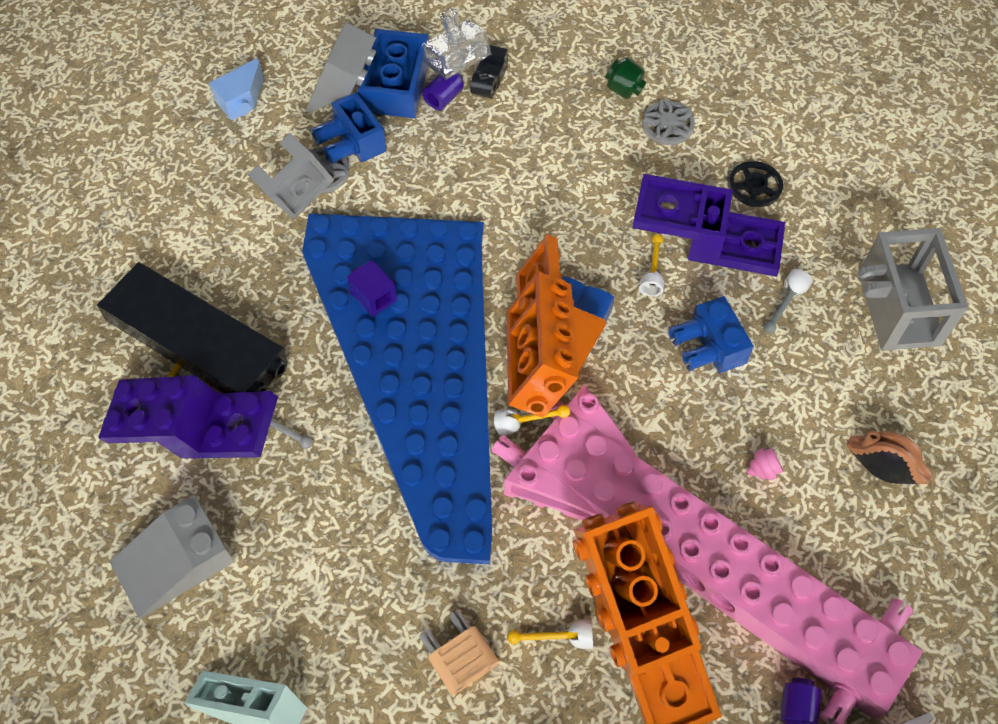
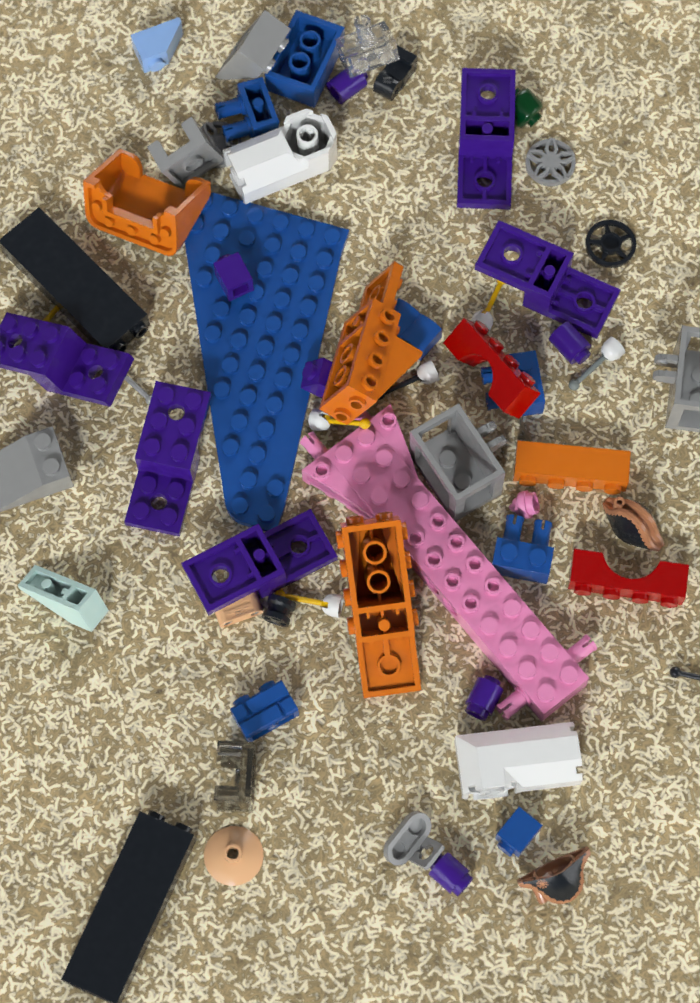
camera: 15 degrees right, 10 degrees up
(253, 245) = (141, 207): none -> orange windscreen
(341, 504) = (167, 458): none -> dark purple bracket
(396, 162) = (282, 156): none -> white brick
(479, 603) = (259, 561): none -> dark purple bracket
(492, 375) = (315, 376): none -> dark purple brick
(519, 656) = (279, 610): none -> black wheel
(601, 108) = (486, 138): none -> dark purple bracket
(610, 348) = (426, 374): none -> white hinge
(682, 429) = (459, 462): none -> light grey piece
(713, 337) = (510, 387): none -> red arch
(753, 285) = (570, 343): none -> dark purple brick
(787, 527) = (523, 559): none -> blue brick
(802, 411) = (572, 466): none -> orange brick
(870, 525) = (663, 585): none -> red arch

